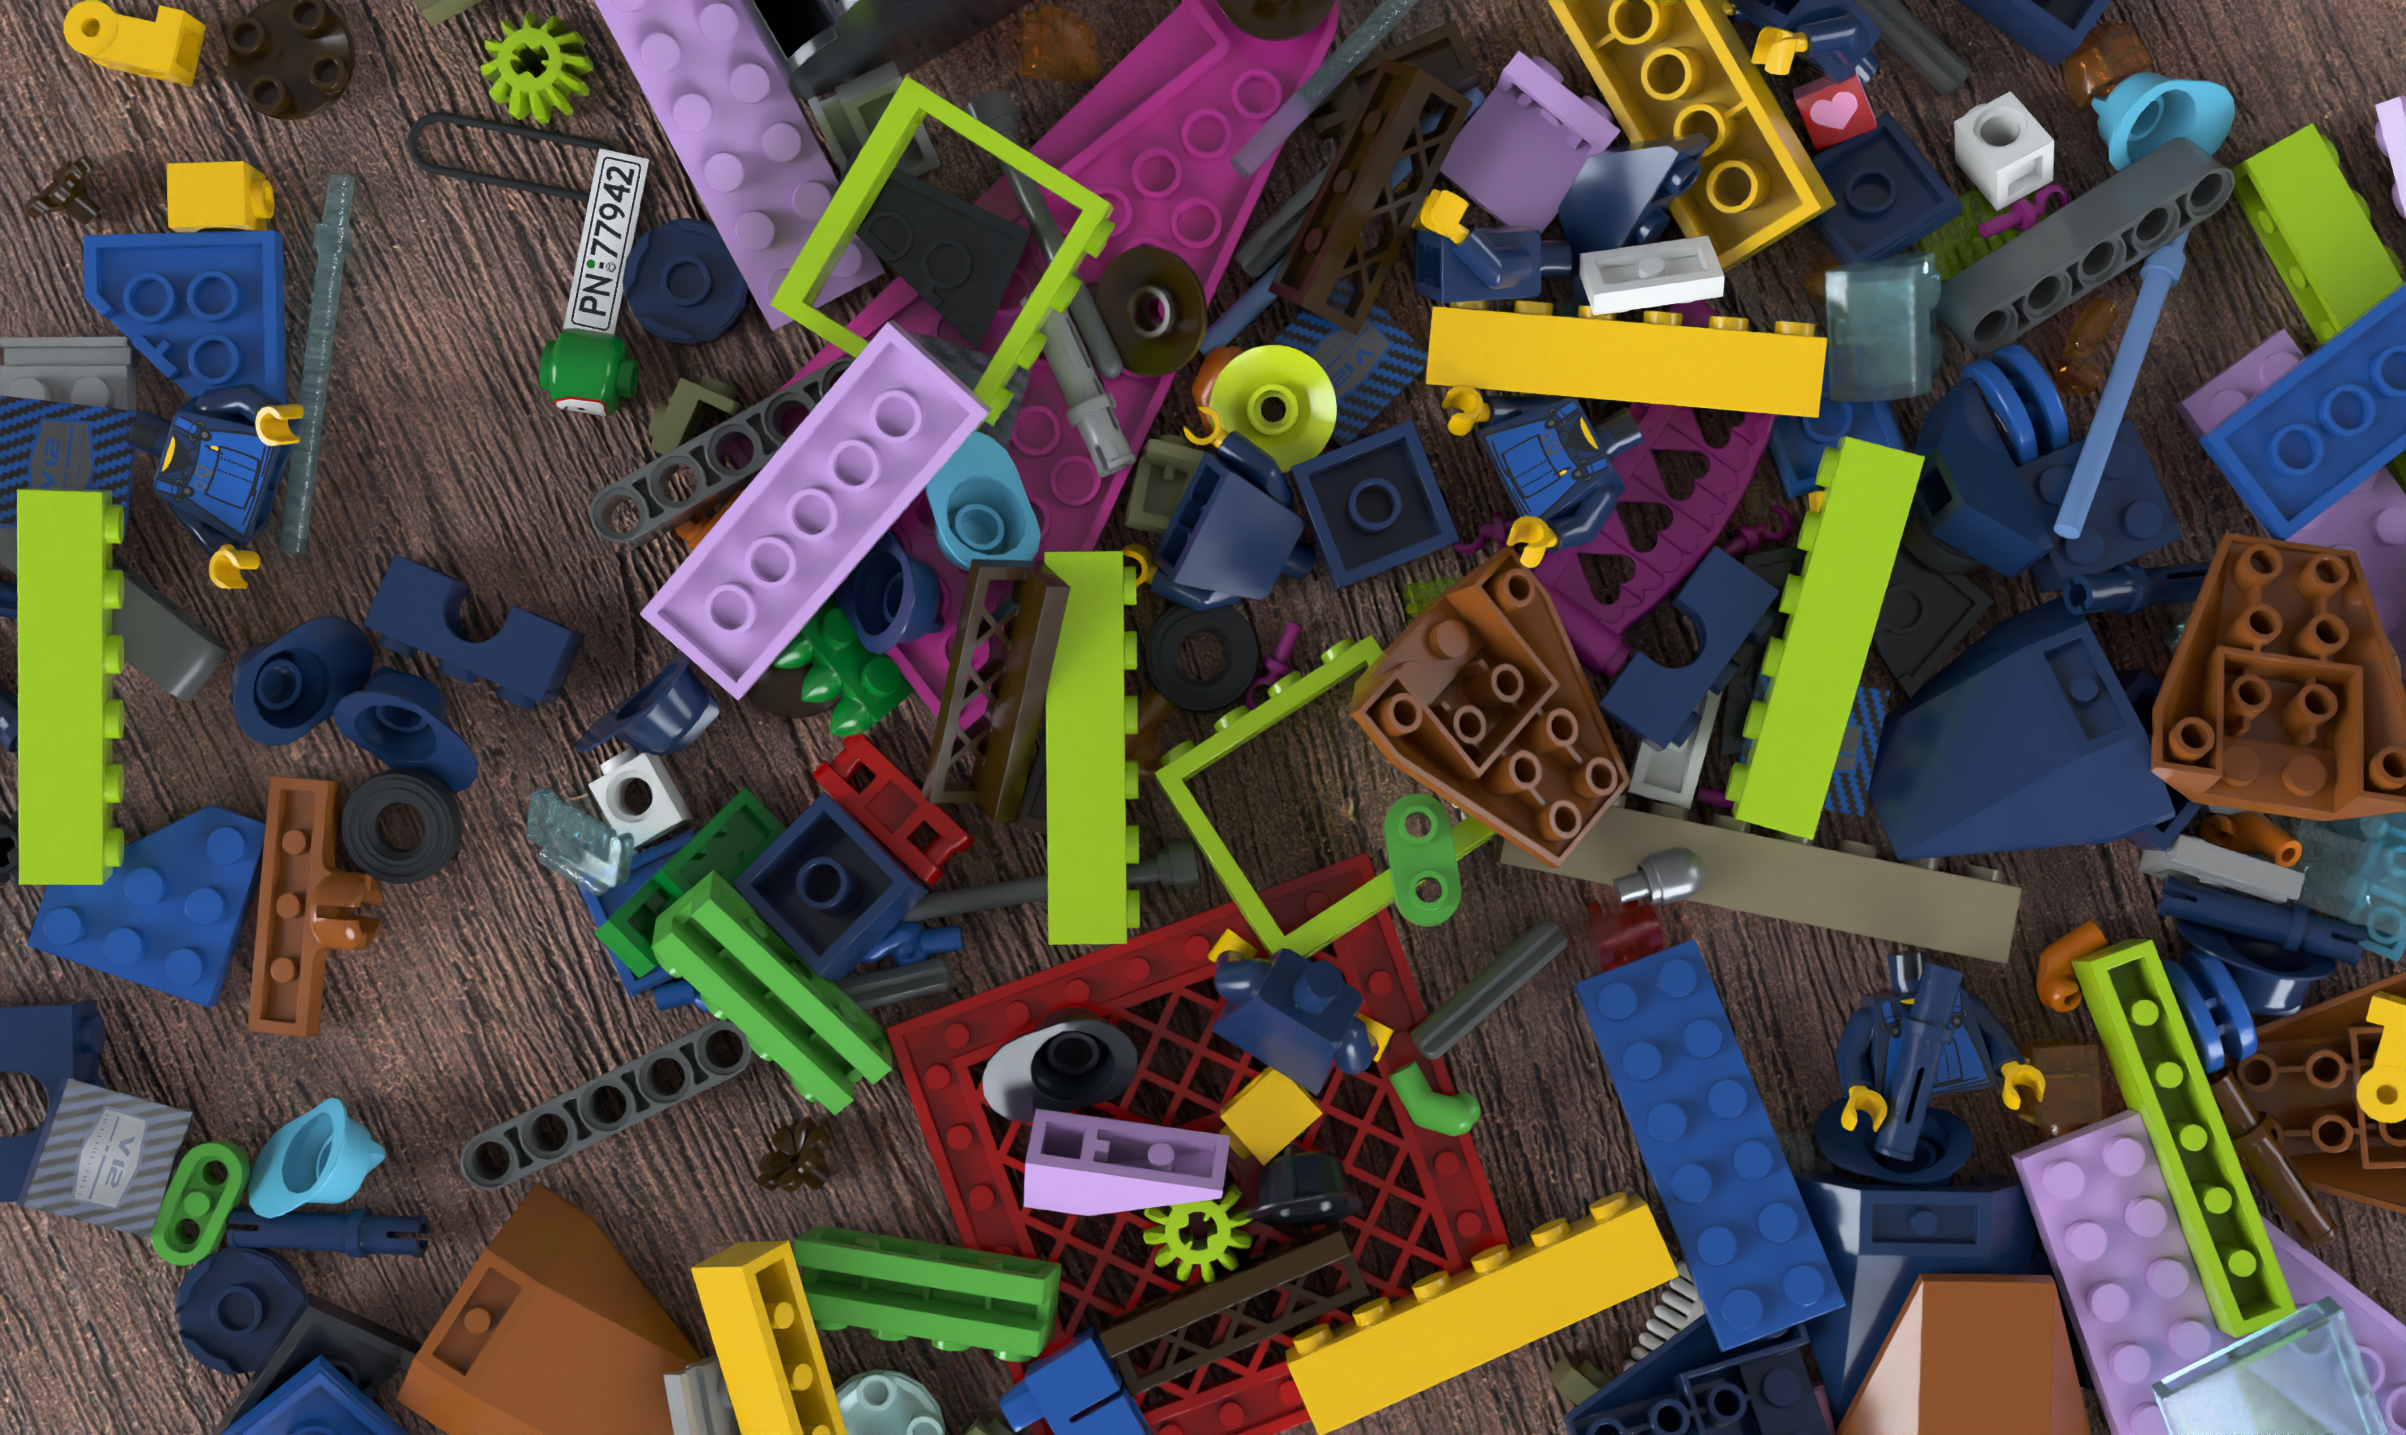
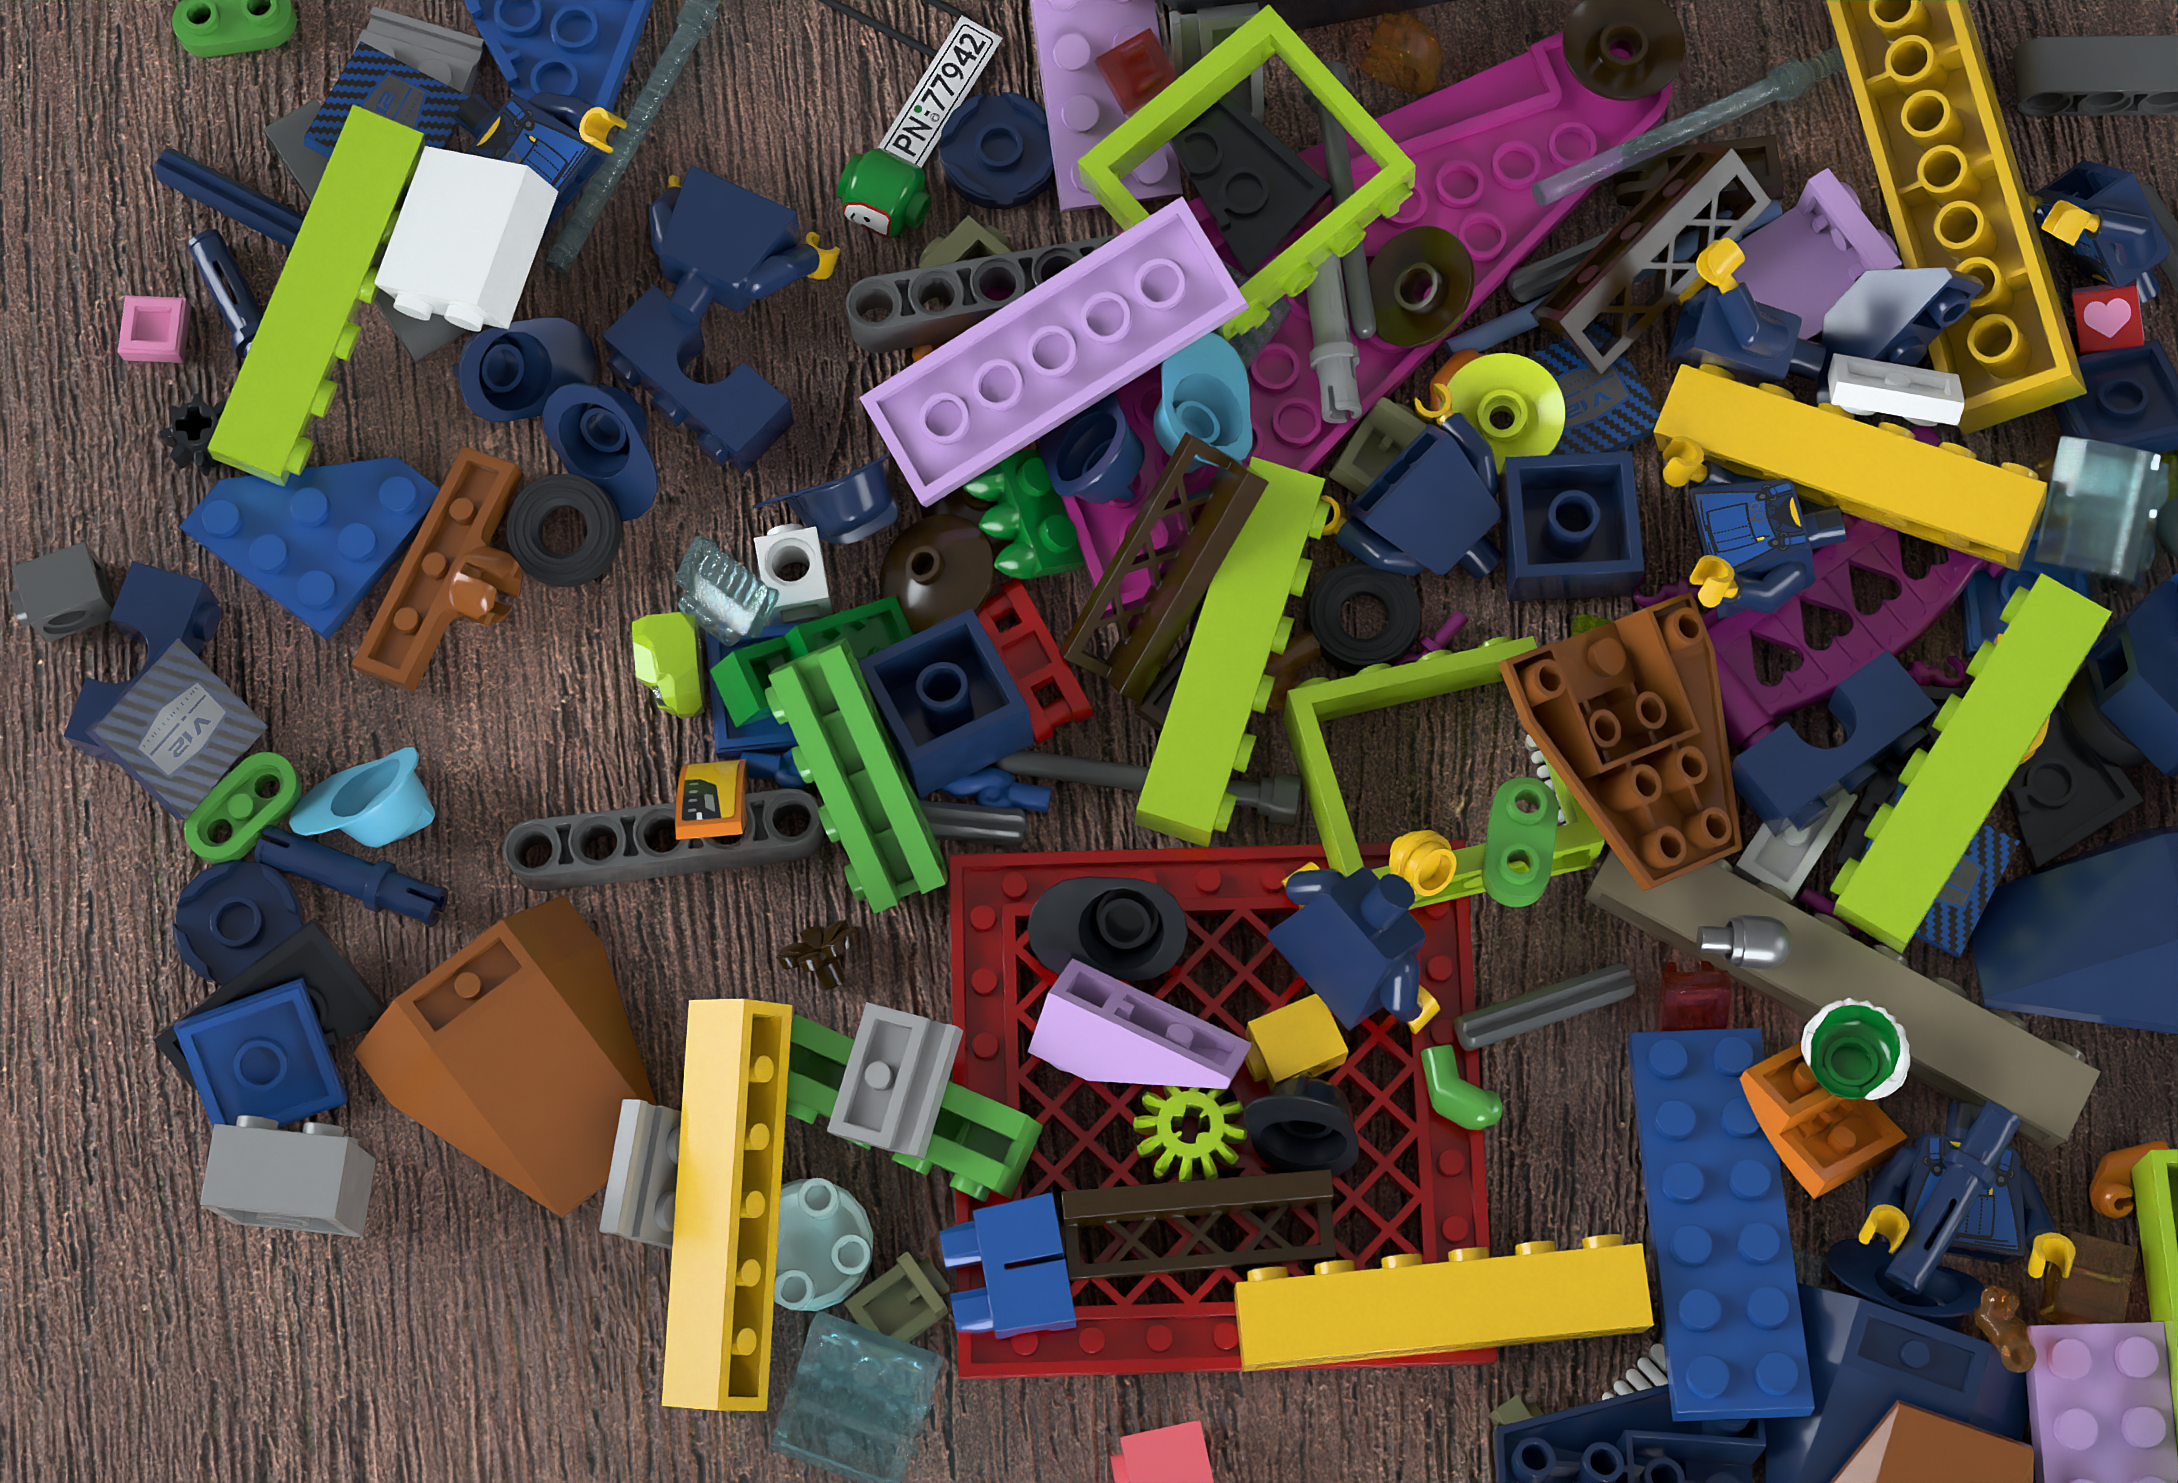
camera: 20 degrees right, 15 degrees down
(188, 586) = (465, 239): none -> white brick
(452, 491) = (728, 245): none -> dark blue torso
(555, 927) = (671, 661): none -> lime rock
(641, 1062) = (711, 799): none -> slope
(797, 172) = (1136, 70): none -> clear red tile
(799, 745) = (960, 573): none -> dark brown dish
(910, 1288) = (895, 1080): none -> light grey plate
(1335, 919) = (1423, 861): none -> yellow plate
(1773, 1007) = (1814, 1132): none -> orange slope
(1792, 951) = (1856, 1050): none -> green hair
(2002, 1175) = (2005, 1329): none -> clear orange arm

